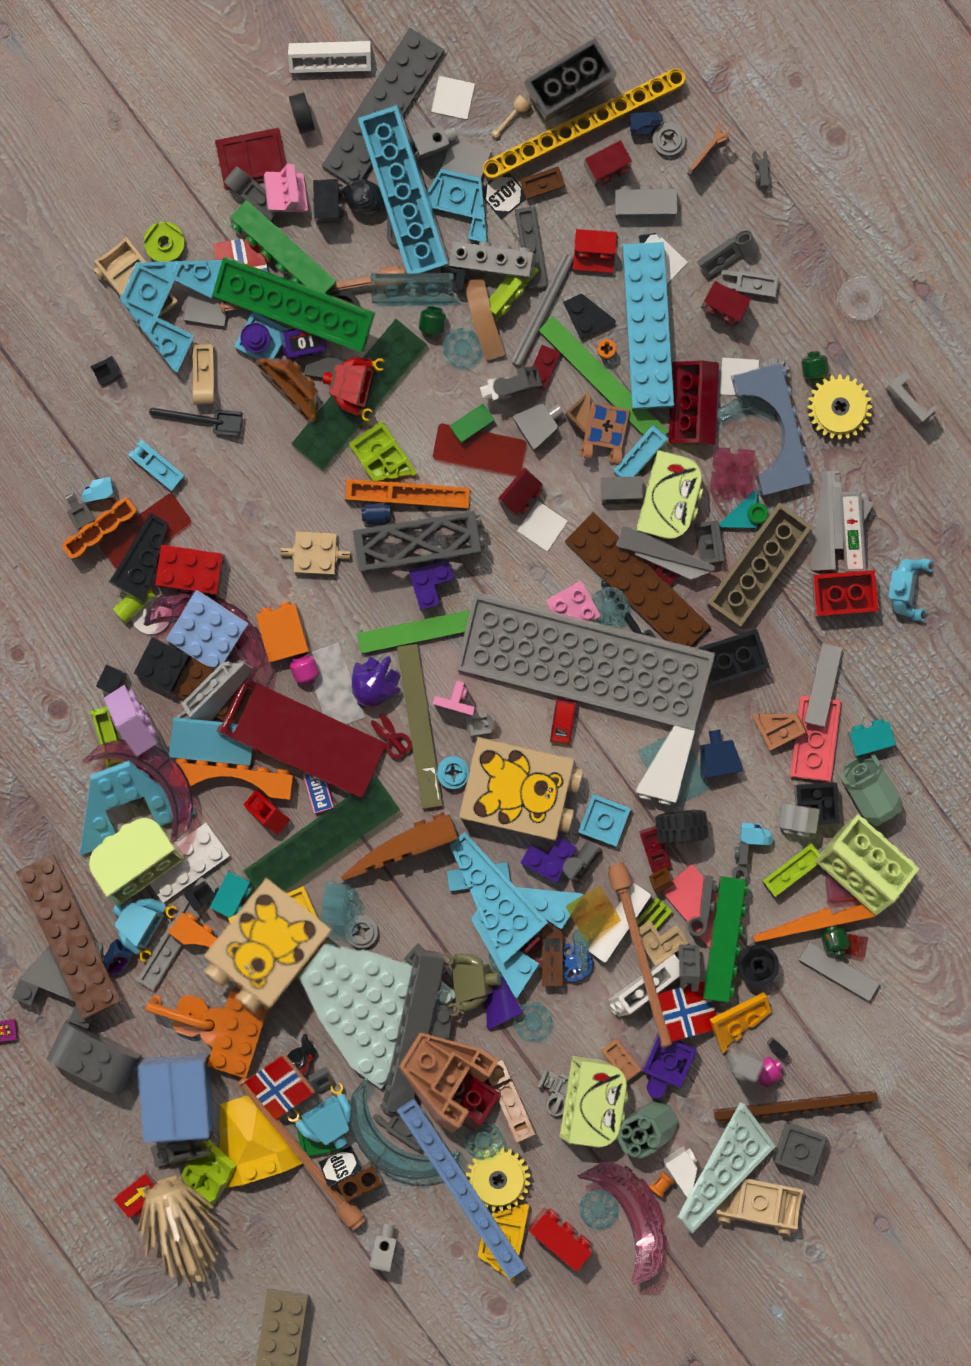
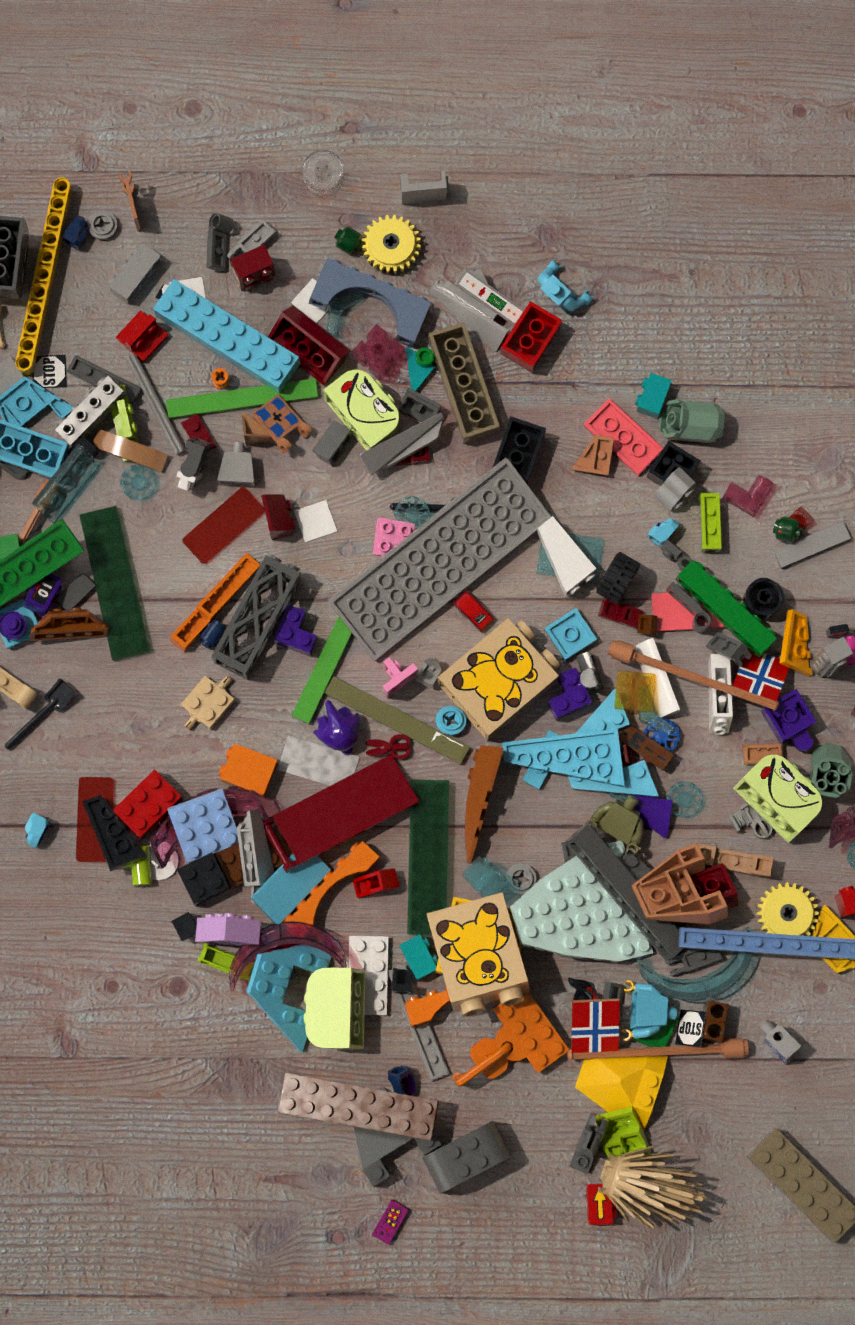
camera: 55 degrees left, 10 degrees down
(80, 513) = (42, 857): dark grey plate -> none
(95, 532) = (64, 854): orange brick -> none
(138, 923) = (388, 1044): medium azure torso -> none
(157, 465) = (51, 772): medium azure plate -> none
(176, 1097) = (545, 1112): medium blue piece -> none
(304, 669) = (288, 774): dark pink head -> none
(318, 793) = (390, 833): tile -> none
(351, 384) = (102, 579): red torso -> none
(381, 454) = (171, 598): lime slope -> none
(432, 321) = (102, 489): dark green head -> none
(472, 423) = (199, 515): green tile -> none
(484, 1141) = (750, 902): clear light blue wheel -> none
(542, 183) = (63, 336): reddish brown plate -> none
(586, 315) = (185, 376): black wing -> none
(608, 163) = (85, 277): dark red brick -> none
(638, 581) = (419, 479): reddish brown plate -> none
(641, 453) = (316, 408): medium azure plate -> none
(655, 914) = (677, 649): lime tile -> none
(663, 946) = (698, 658): tan plate -> none
(718, 756) = (585, 515): dark blue torso -> none
(761, 175) = (179, 177): dark grey plate -> none
(816, 920) = (762, 530): orange slope -> none
(823, 685) = (588, 402): light grey tile -> none
(867, 864) = (746, 462): yellowish green brick -> none

